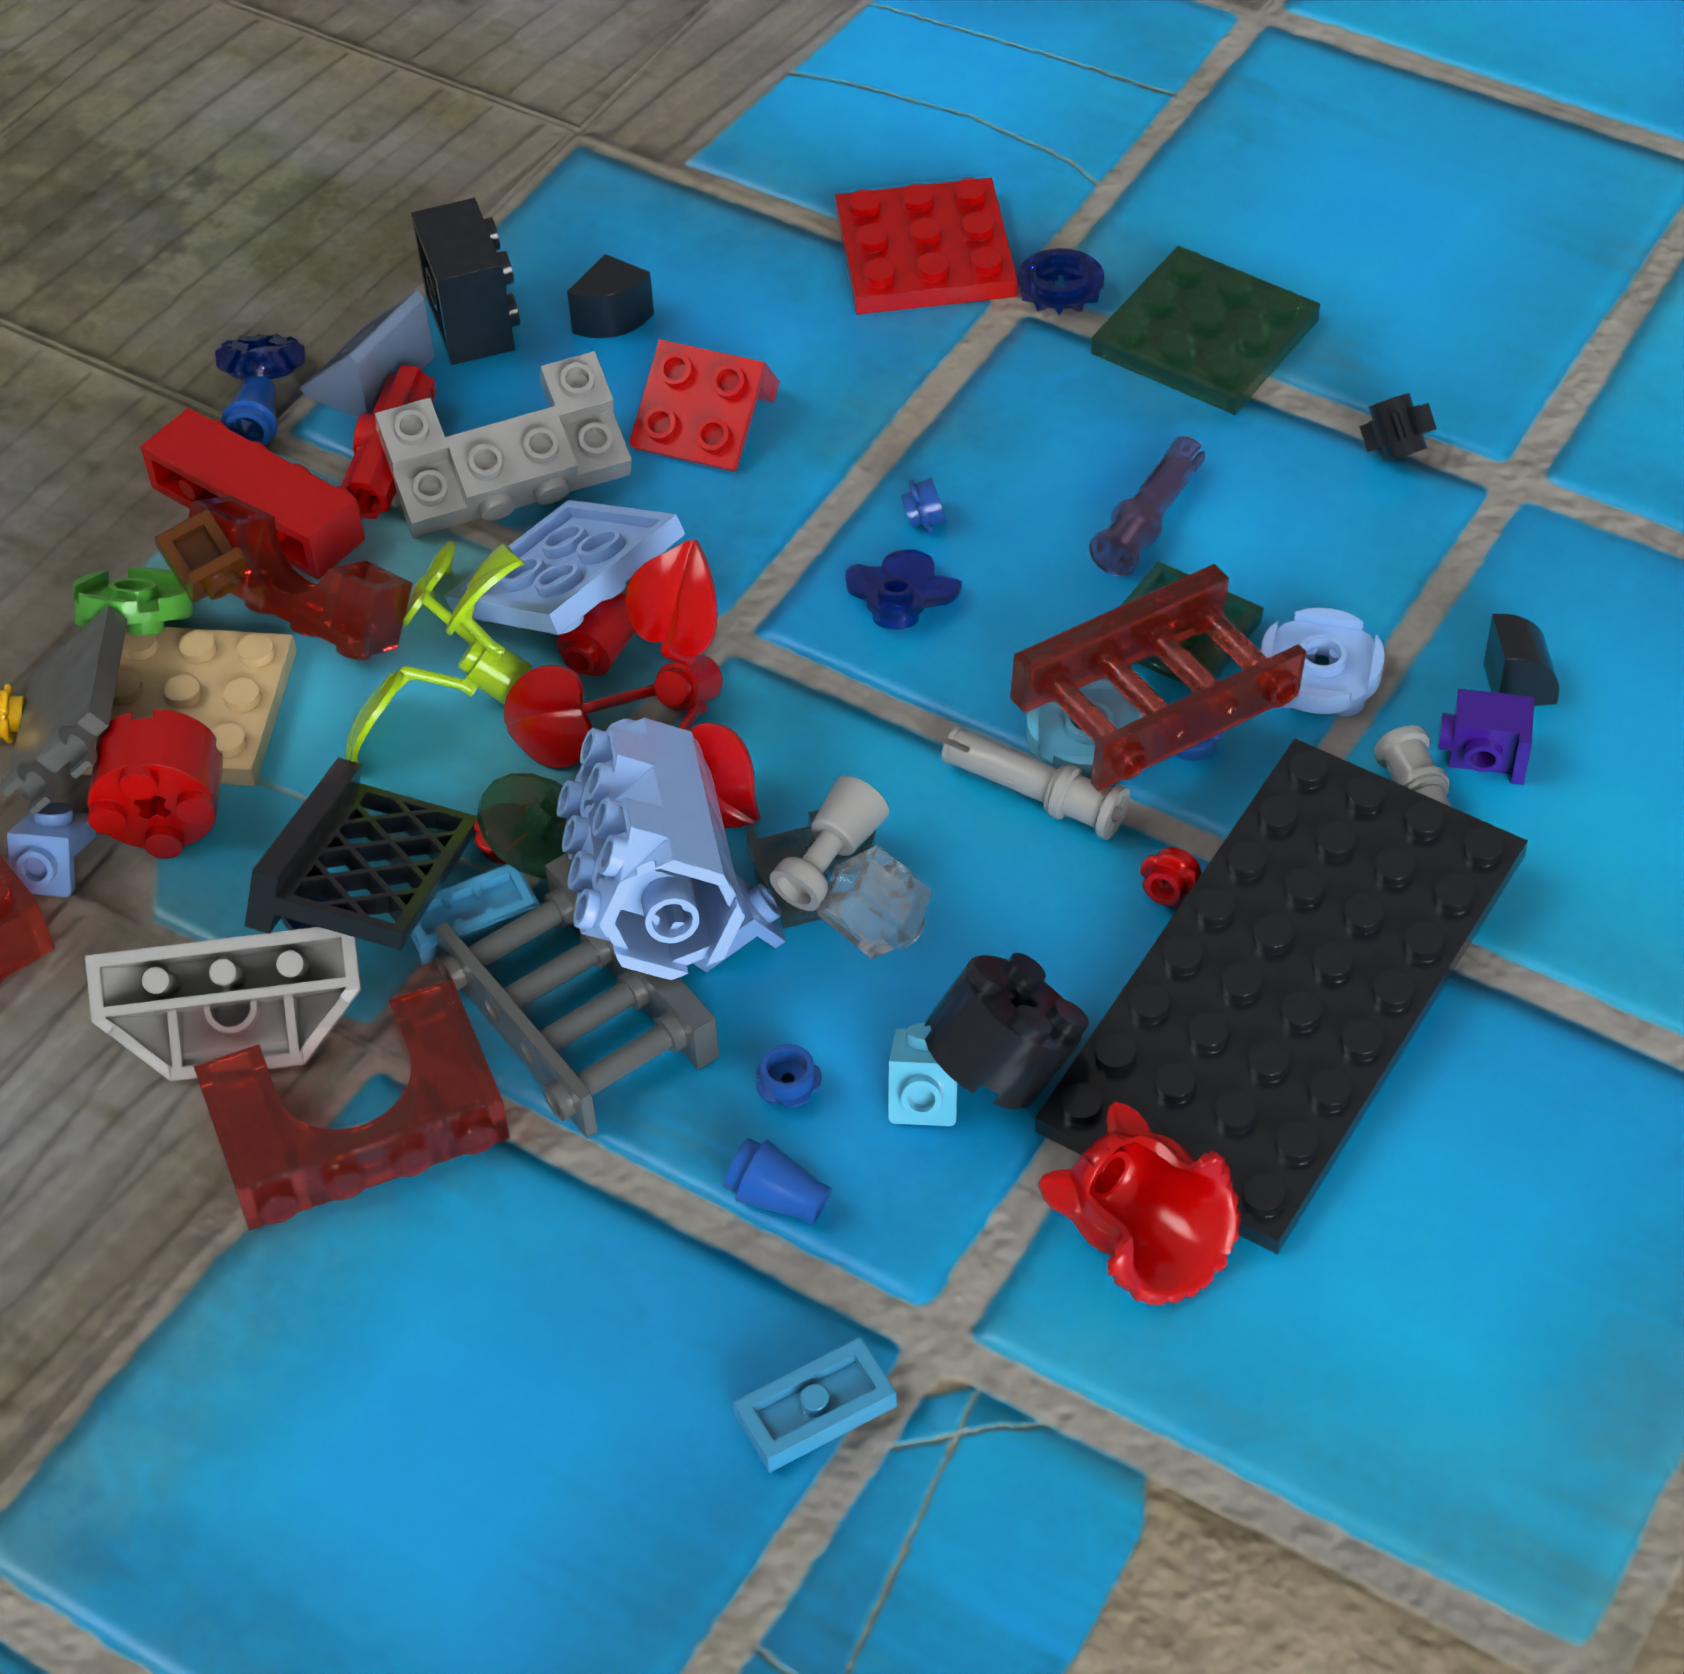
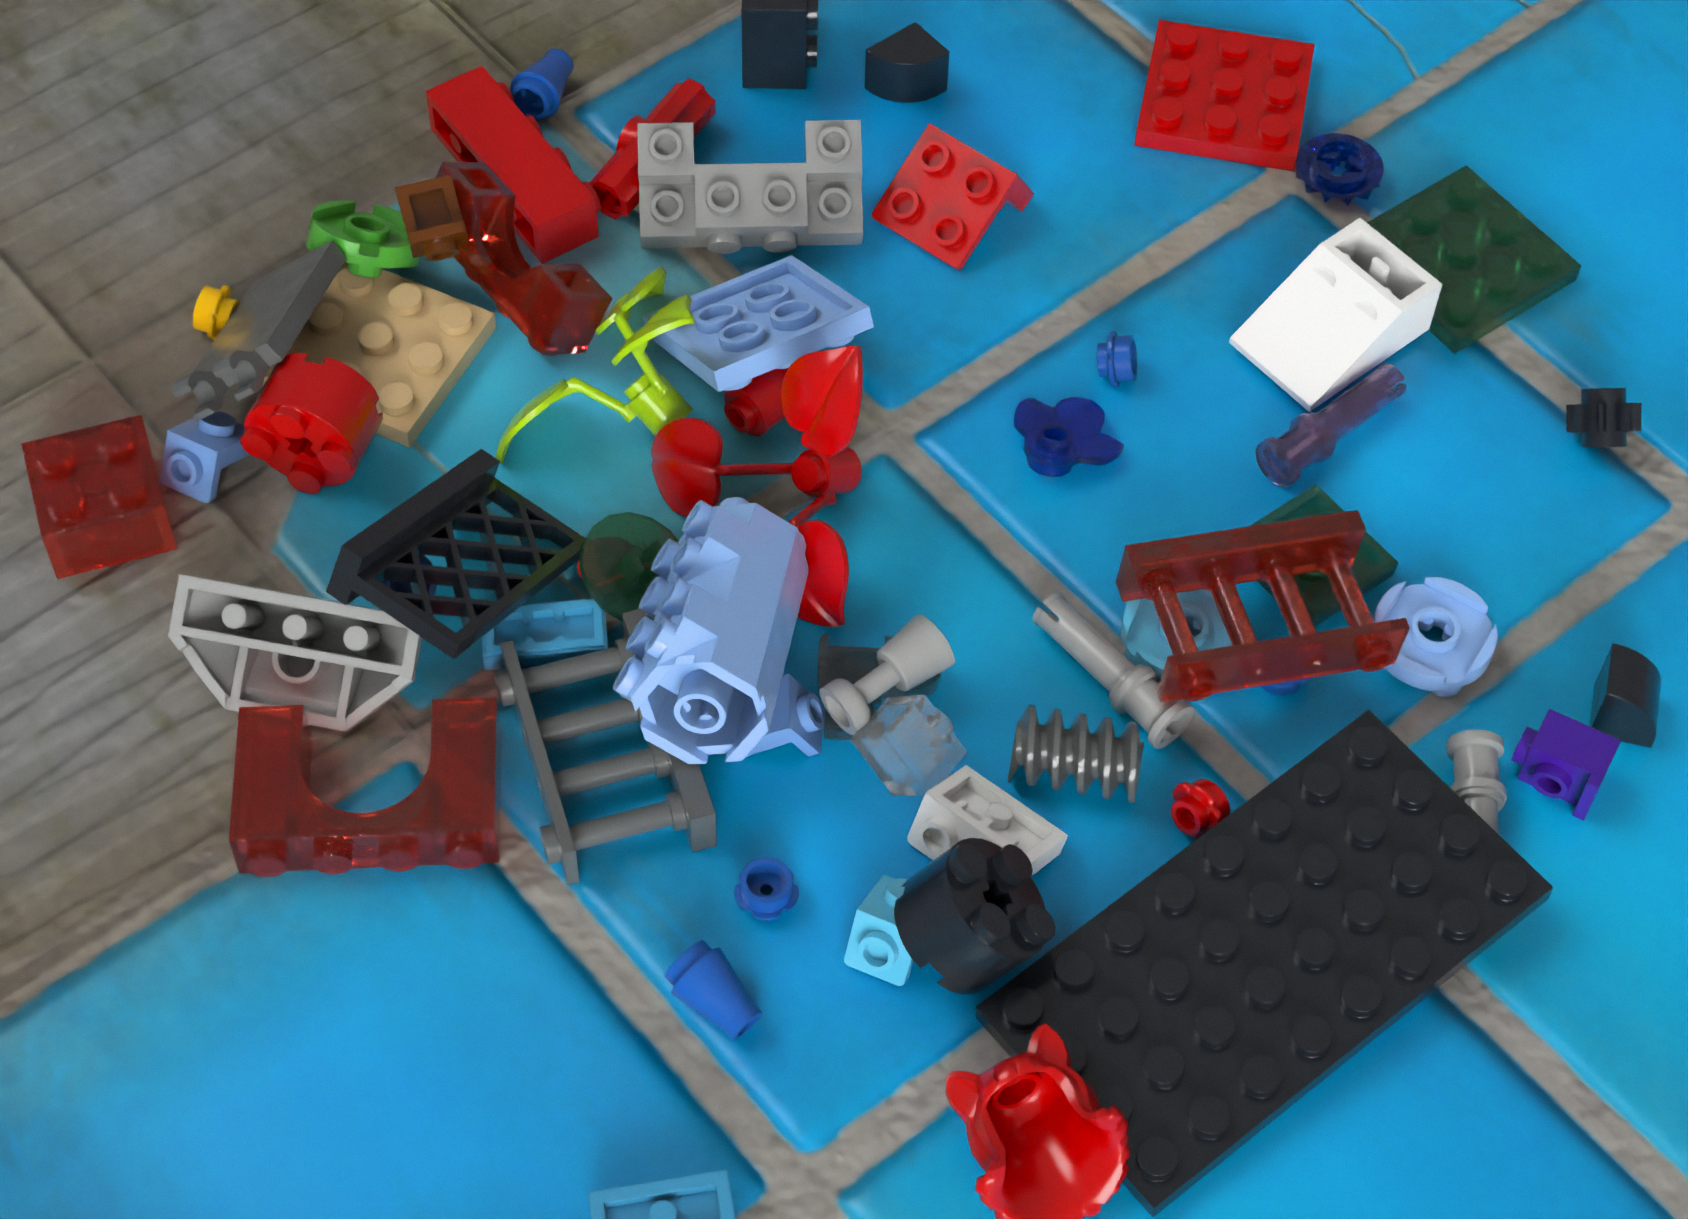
camera: 15 degrees right, 5 degrees up
(260, 356) = (570, 31): clear blue gear -> none
(359, 369) = (689, 51): sand blue slope -> none
(951, 939) = (976, 808): none -> white bracket
(1036, 860) = (1077, 753): none -> dark grey piece
(1118, 405) = (1339, 315): none -> white slope

